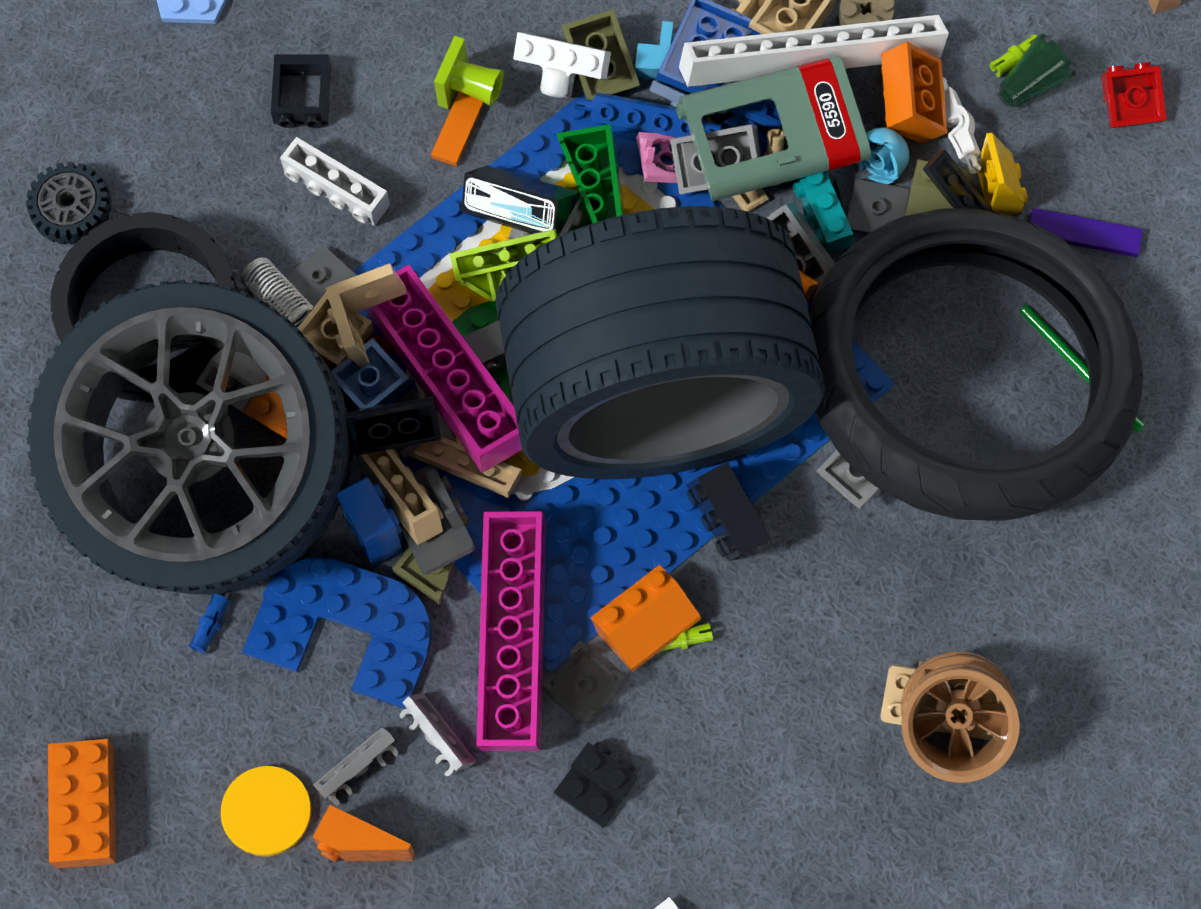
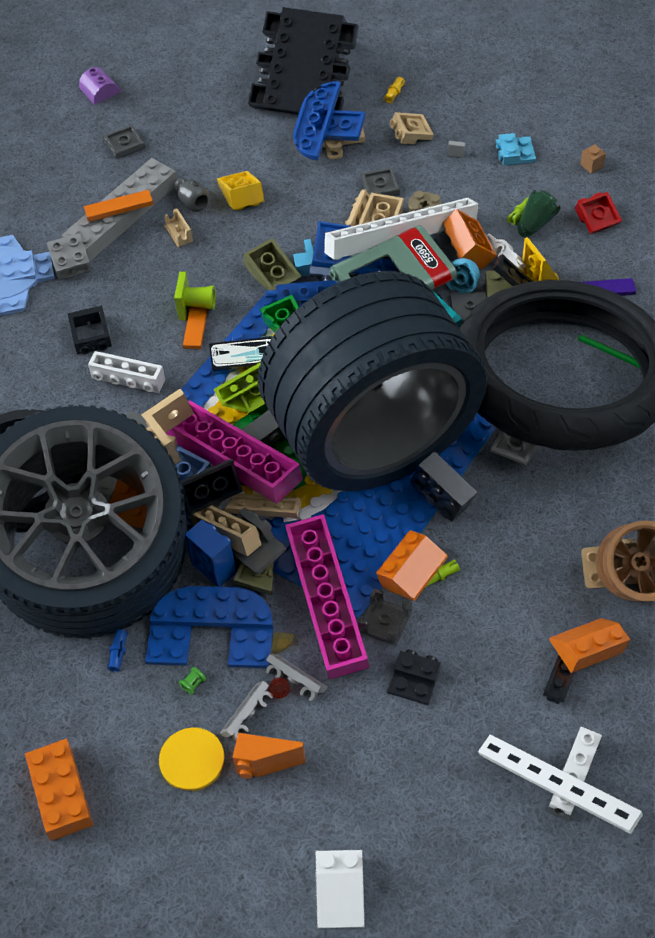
camera: 15 degrees left, 15 degrees down
(296, 699) = (193, 679): none -> bright green bush
(410, 745) = (279, 687): none -> clear red plate
(433, 676) = (281, 641): none -> clear yellow tile
(561, 62) = (249, 274): white plate -> none
(797, 840) = (558, 682): none -> black hinge
(850, 807) = (590, 643): none -> orange slope

